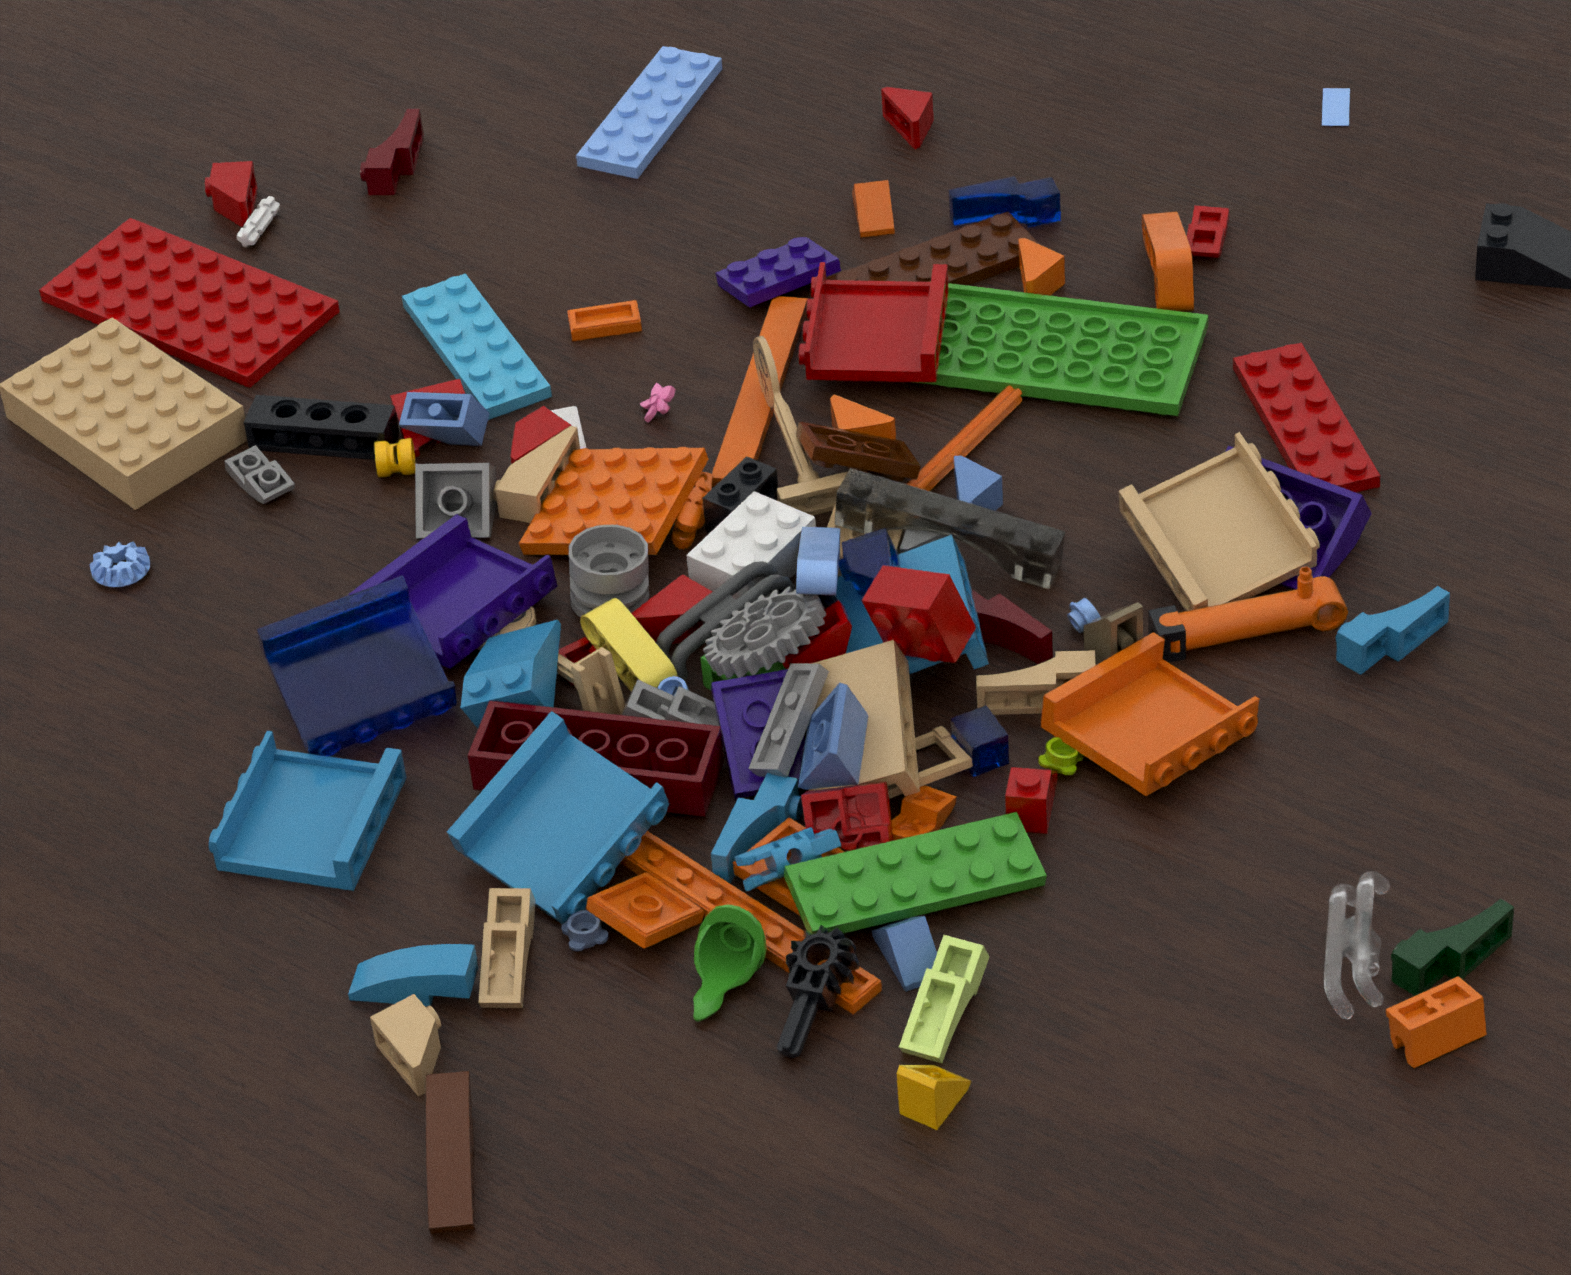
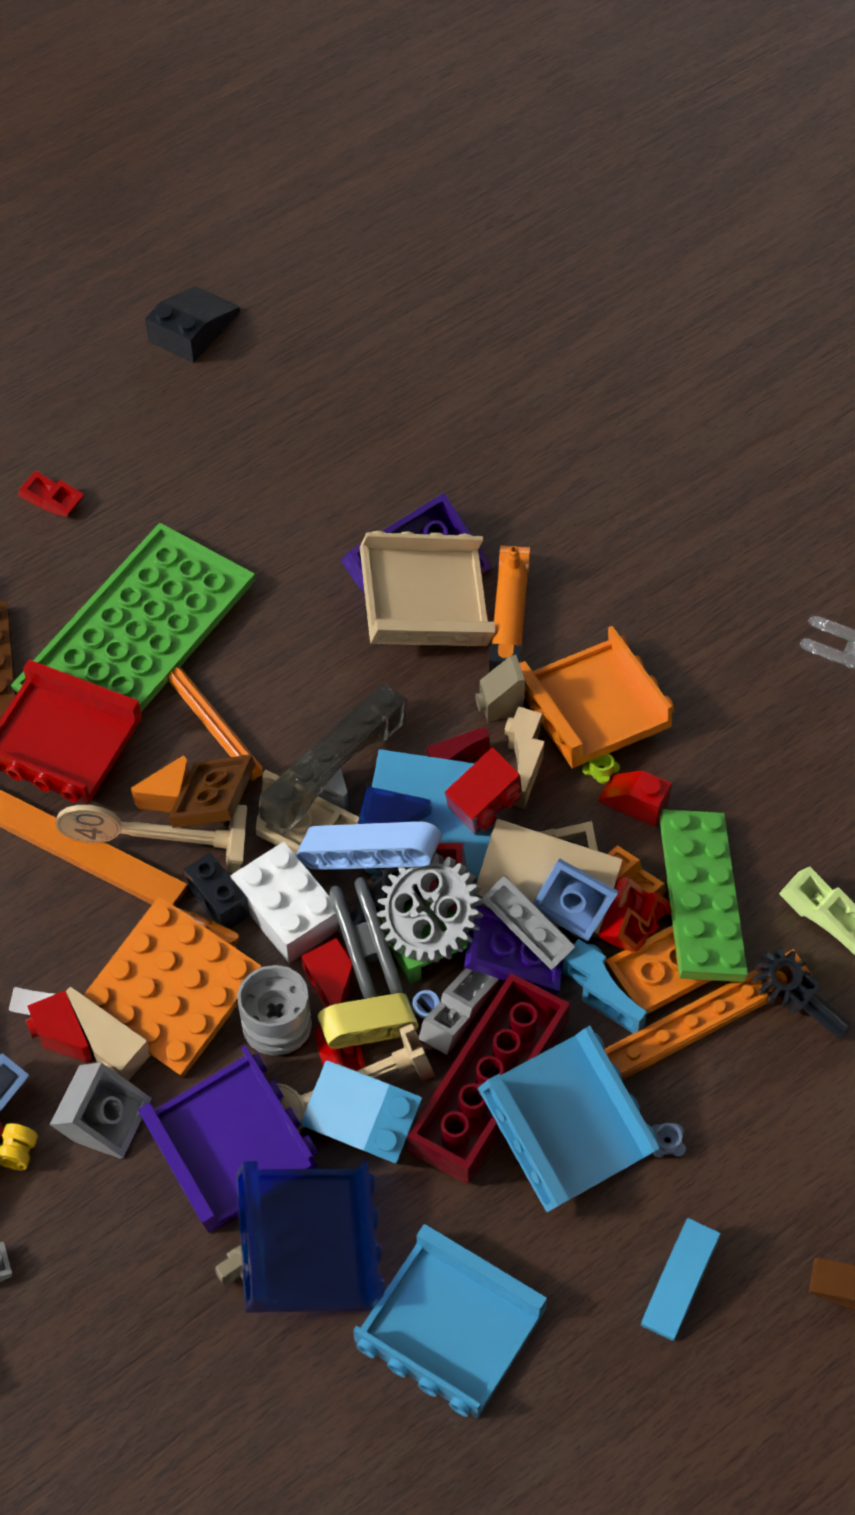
camera: 75 degrees left, 15 degrees up
(123, 573) = (34, 1441): light blue gear -> none
(409, 1039) = (756, 1298): tan slope -> none
(506, 947) = (672, 1197): tan slope -> none
(645, 910) = (667, 1088): orange tile -> none
(658, 401) = (48, 922): bright pink plant -> none
(726, 955) = (742, 1042): bright green piece -> none
(803, 847) = (663, 968): dark azure hinge -> none
(907, 949) = (767, 921): medium blue slope -> none
(977, 484) = (283, 733): medium blue slope -> none
(981, 739) = (567, 808): clear blue brick -> none
(1040, 268) = (36, 612): orange slope -> none
(1082, 614) = (457, 706): light blue plate -> none
(1170, 260) = (79, 519): orange beam -> none
(1305, 417) = (301, 508): red plate -> none
(1391, 632) = (563, 547): dark azure slope -> none

